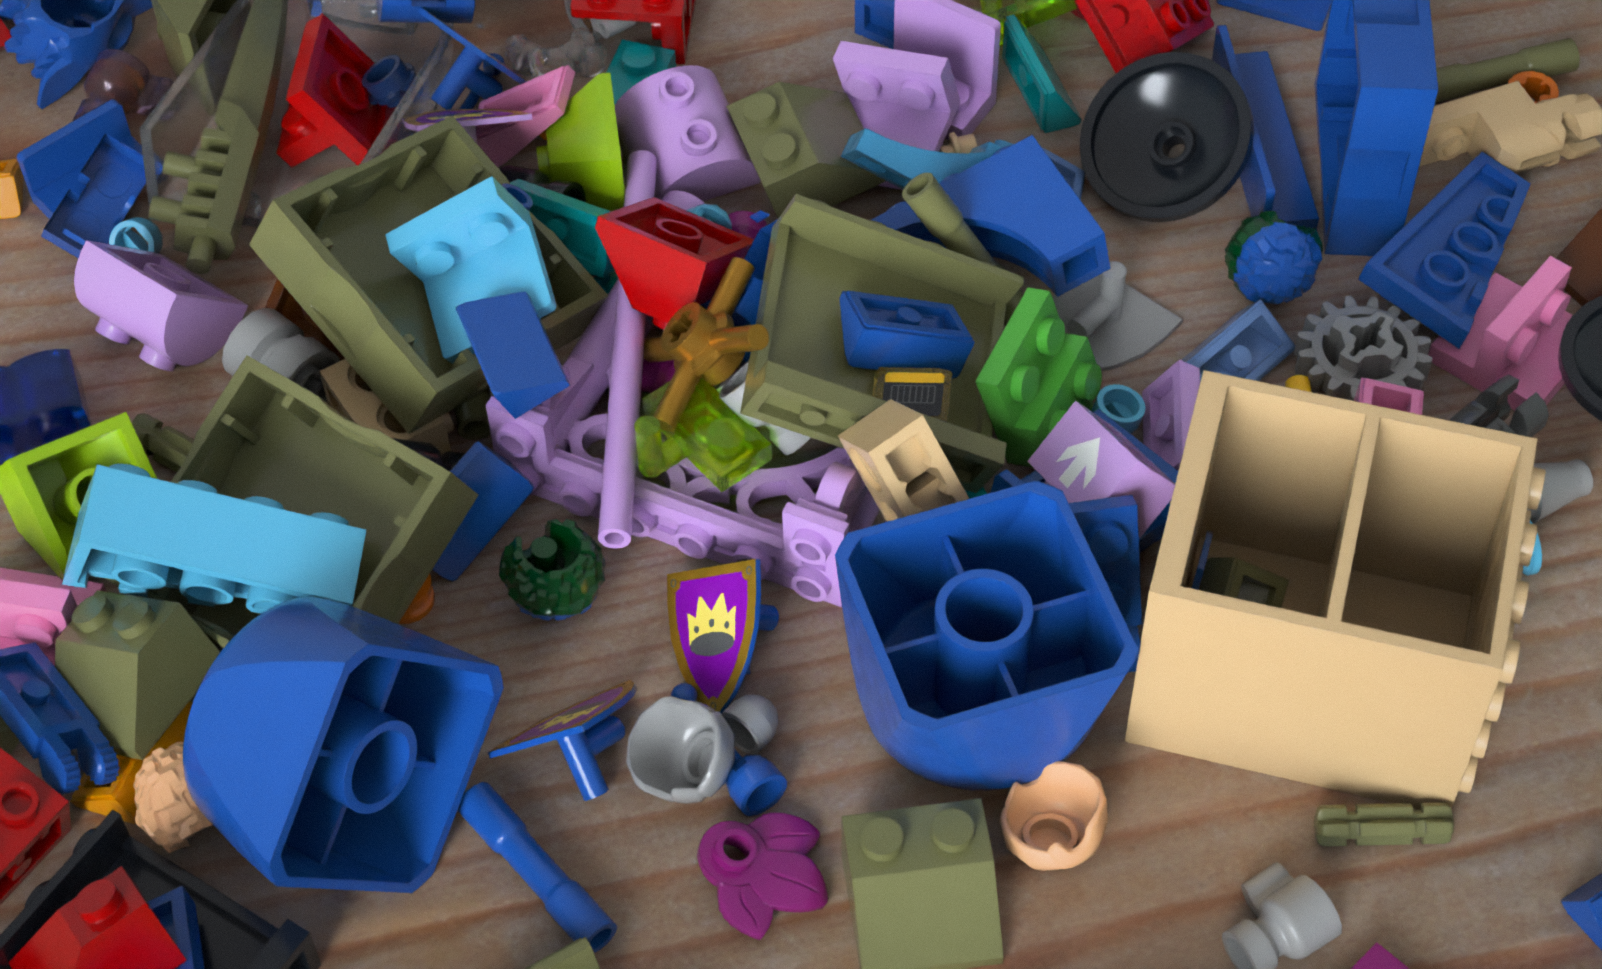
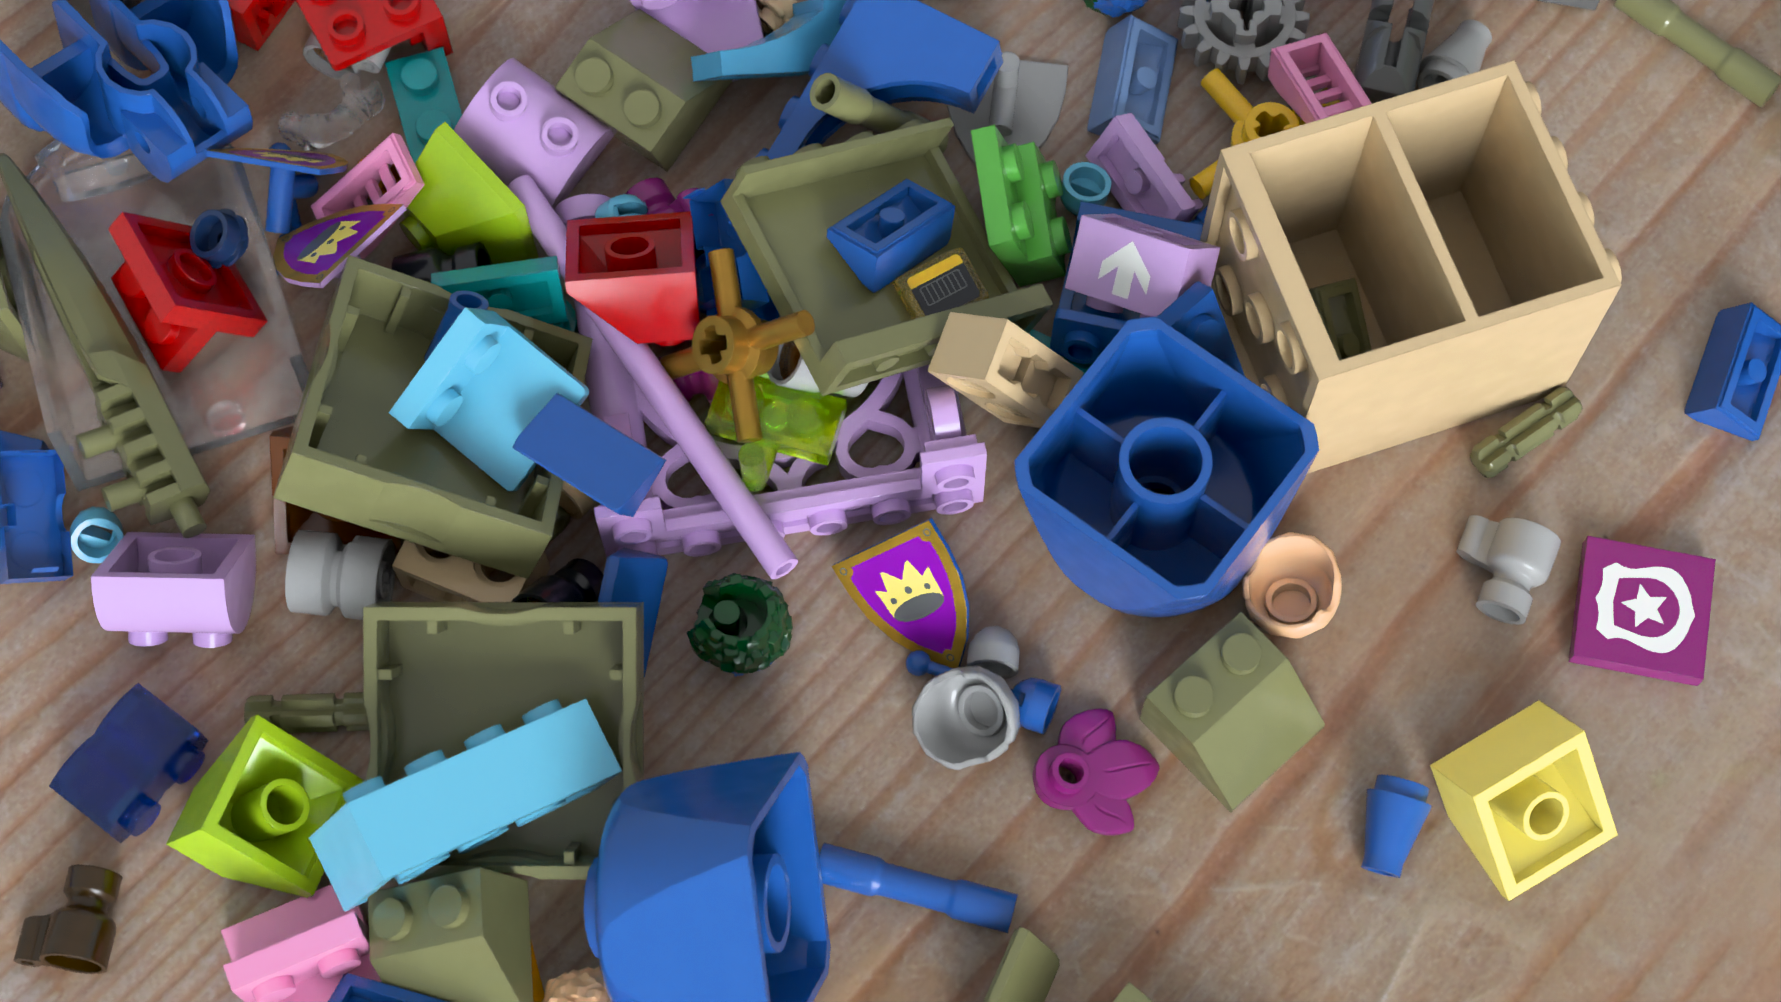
camera: 35 degrees left, 15 degrees up
(581, 733) = (864, 748): blue shield -> none

